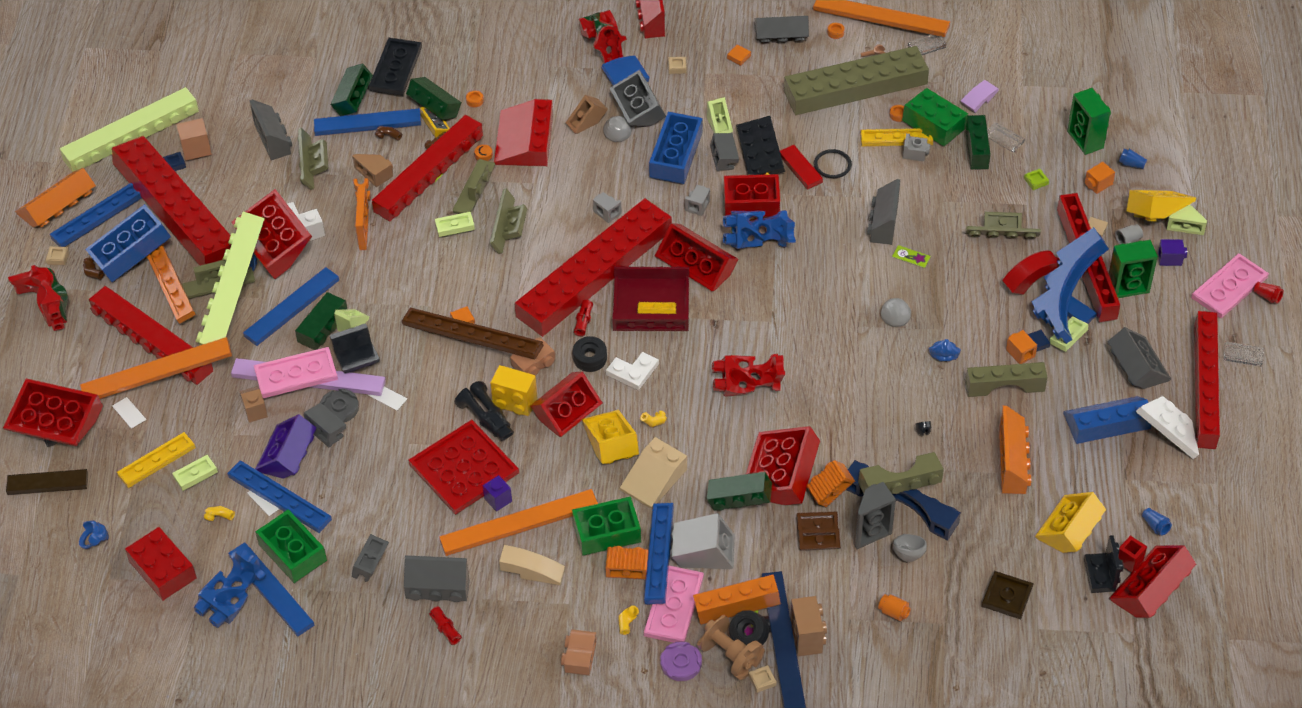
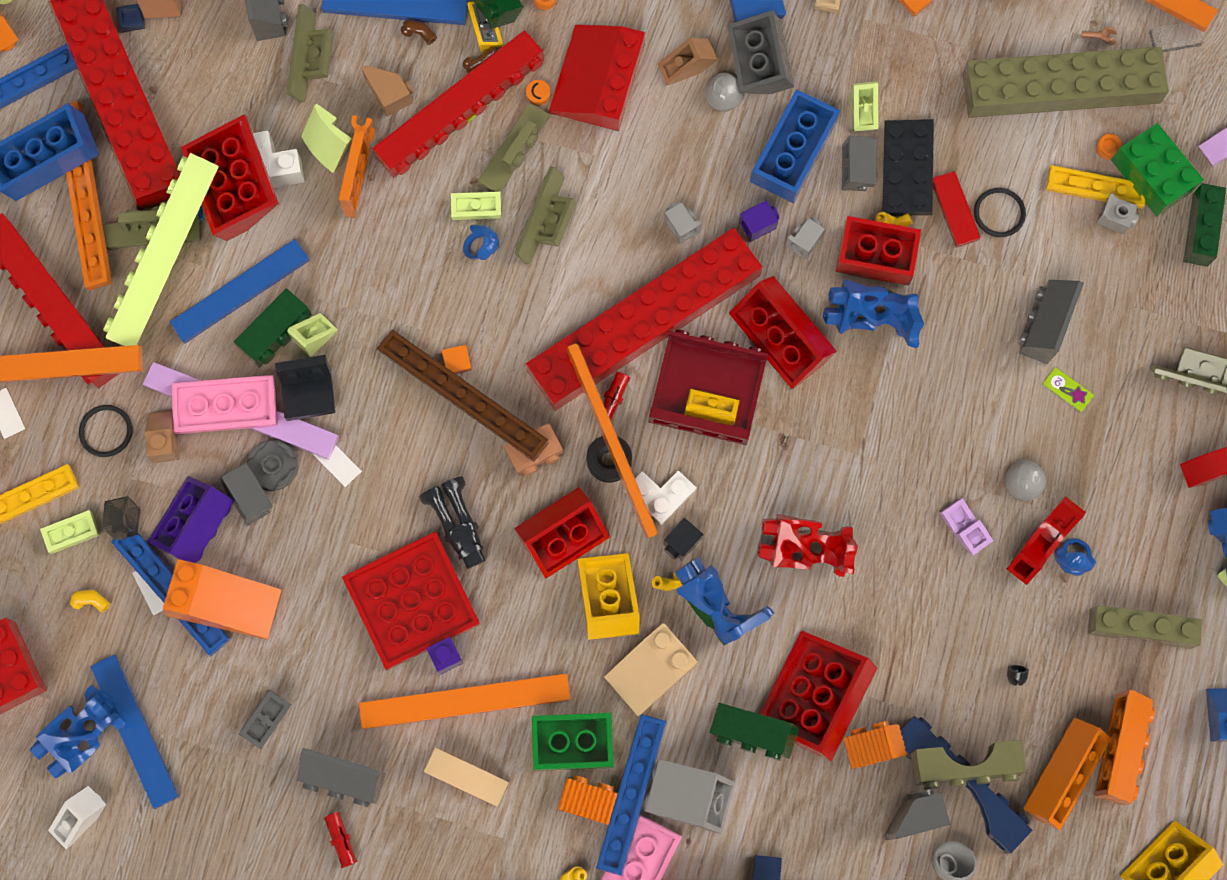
camera: 10 degrees right, 25 degrees up
(211, 422) = (115, 451): none -> black tyre
(233, 453) = (121, 518): none -> clear smoke brick
(237, 648) = (76, 816): none -> white slope
(291, 546) = (168, 680): green brick -> none
(319, 489) = (221, 600): none -> orange slope
(336, 200) = (325, 139): none -> yellowish green slope
(468, 245) = (489, 246): none -> blue piece
(513, 390) = (497, 504): yellow brick -> none
(589, 334) = (611, 441): none -> orange tile
(656, 391) = (682, 540): none -> black brick
(662, 195) = (759, 220): none -> dark purple brick
(683, 422) = (707, 598): none -> blue hips
(818, 530) = (842, 804): reddish brown slope -> none
(860, 348) = (965, 526): none -> lavender slope
(918, 345) = (1045, 540): none -> red arch
(976, 475) = (1067, 773): none -> orange brick
(1021, 347) = (1177, 576): orange brick -> none
(1040, 339) = (1201, 568): dark blue tile -> none

